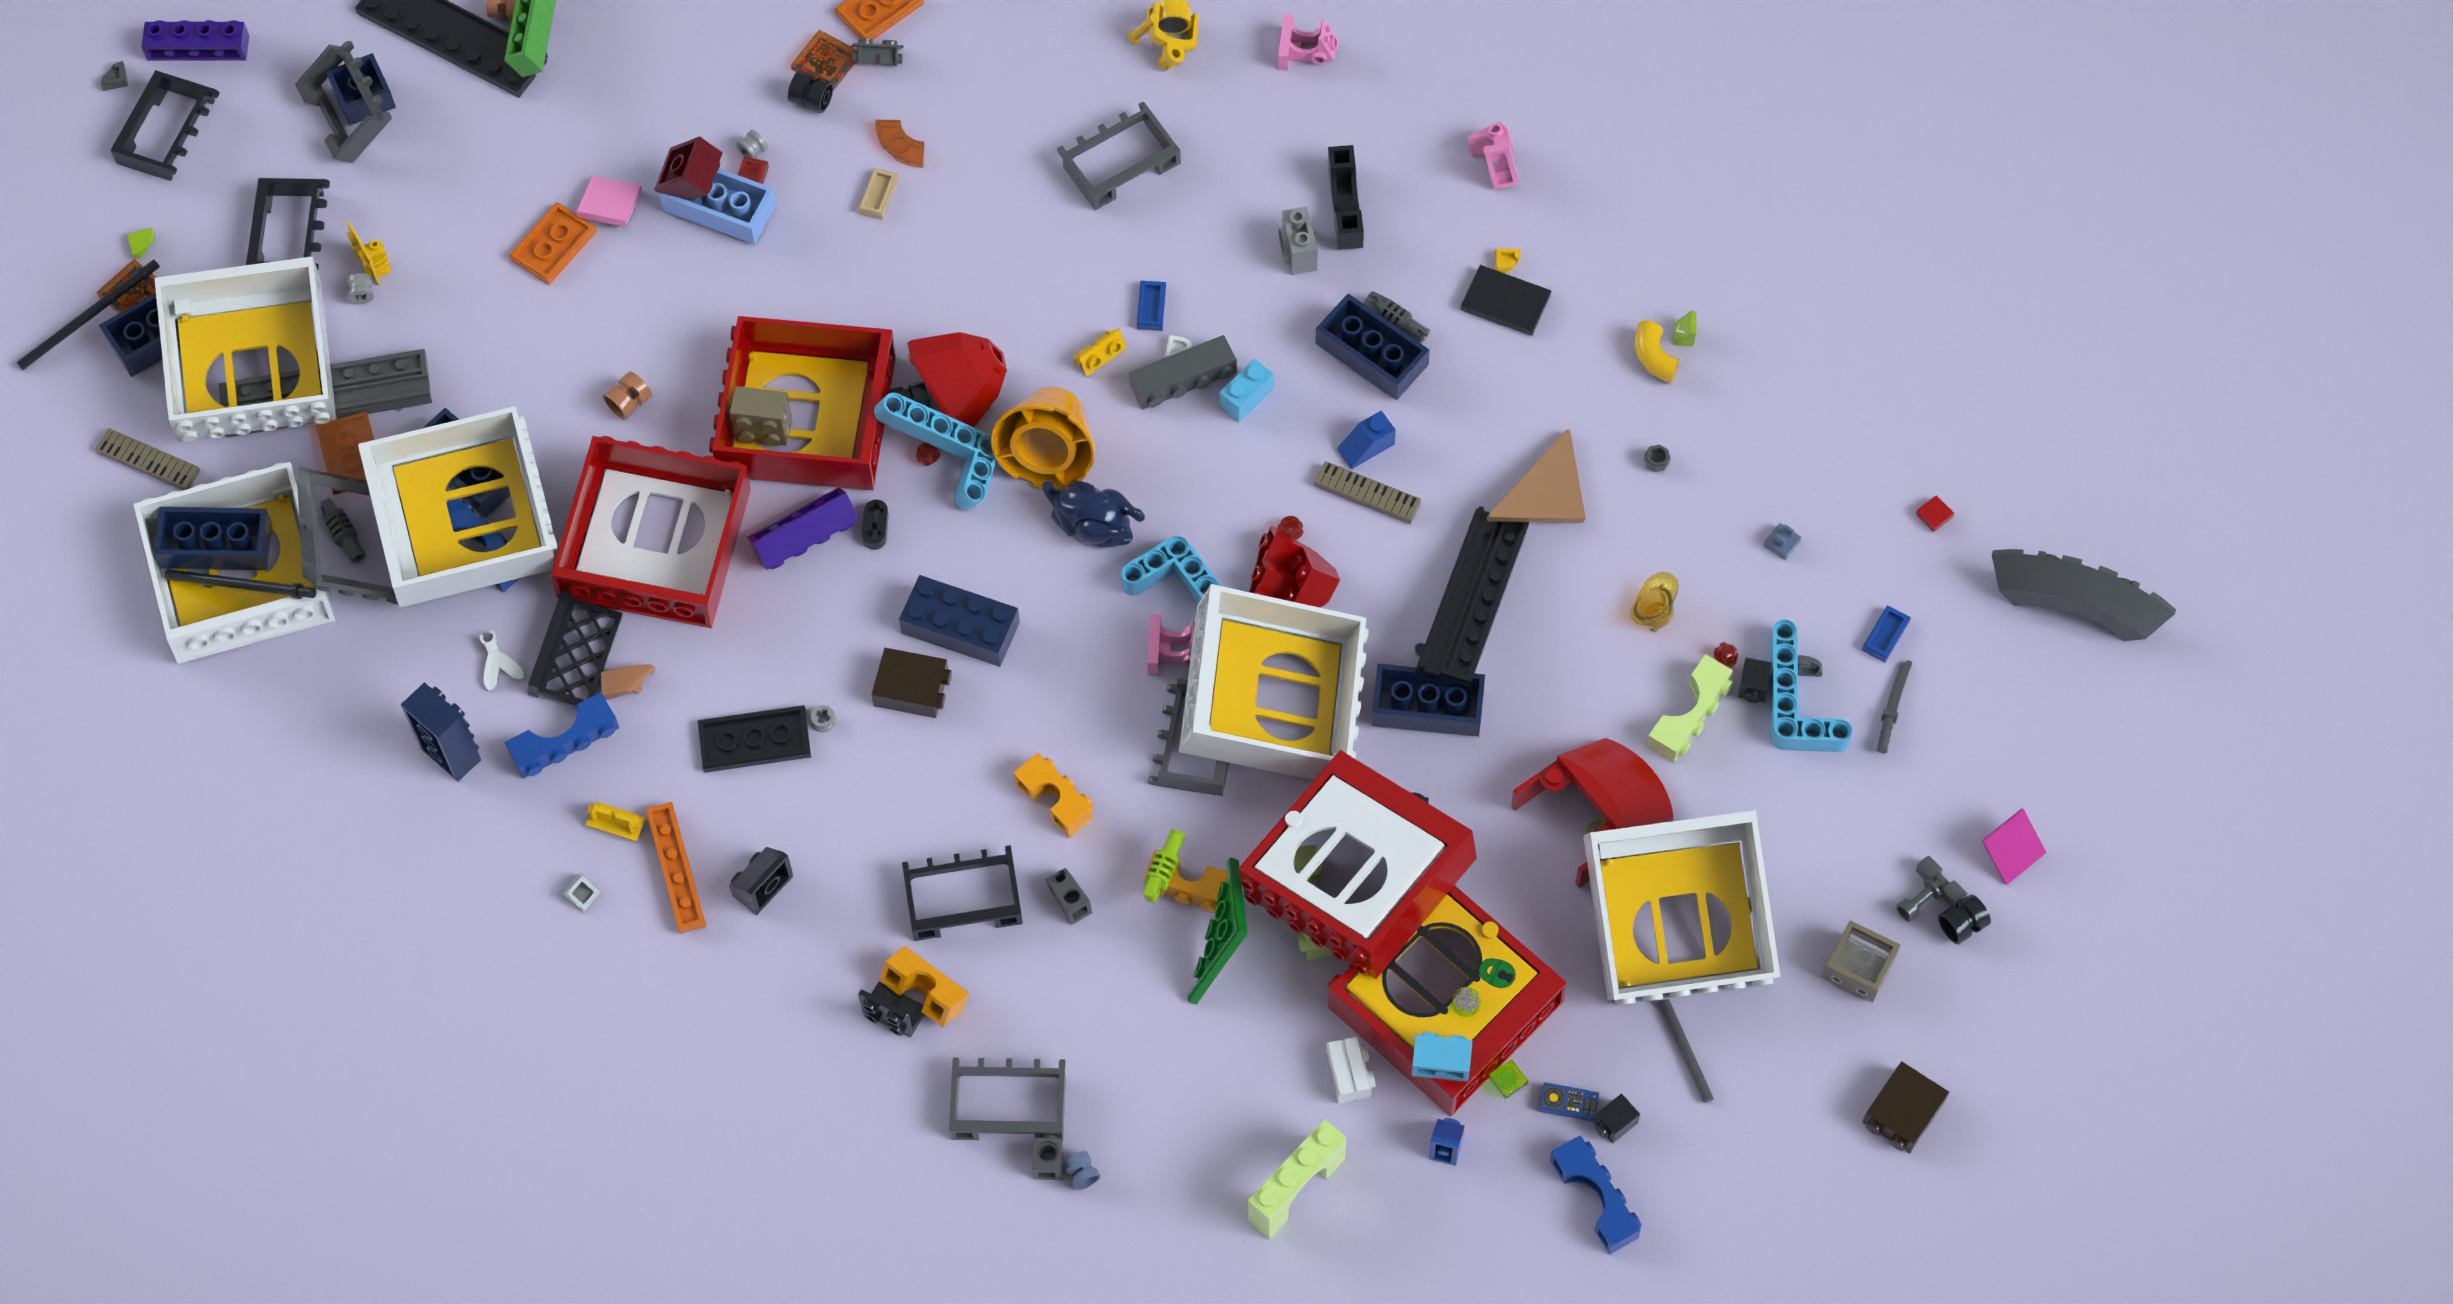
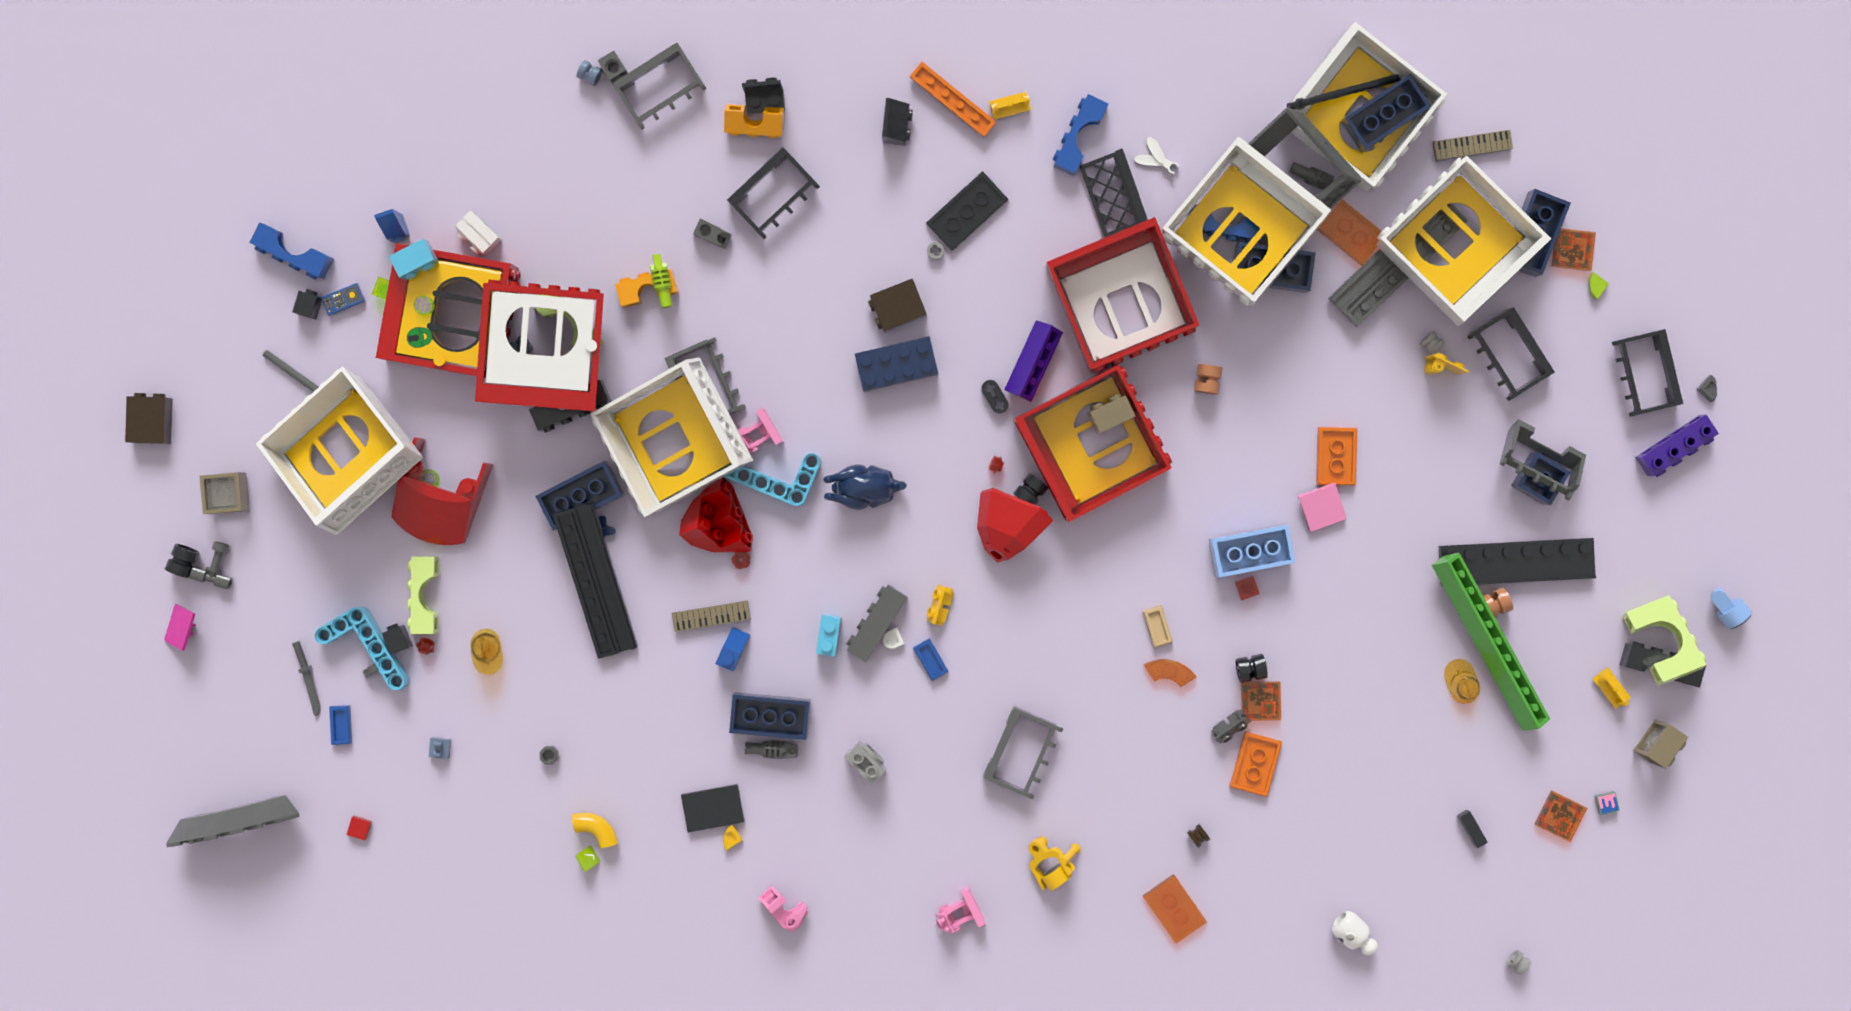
camera: 150 degrees right, 25 degrees up
(59, 336) = (1575, 259): black bar -> none
(441, 731) = (1145, 76): dark blue brick -> none
(580, 892) = (999, 49): light grey slope -> none
(624, 680) = (1071, 194): nougat slope -> none
(689, 169) = (1280, 550): dark red slope -> none
(751, 144) = (1261, 605): light grey wheel -> none
(946, 440) = (986, 477): medium azure beam -> none
(1040, 777) = (778, 296): light orange arch -> none
(1045, 439) = (924, 516): light orange cone -> none
(1223, 933) = (597, 264): green tile -> none
(1318, 1153) = (460, 118): yellowish green arch -> none
(1345, 197) = (859, 814): black arch -> none
(1547, 490) = (600, 688): medium nougat tile -> none

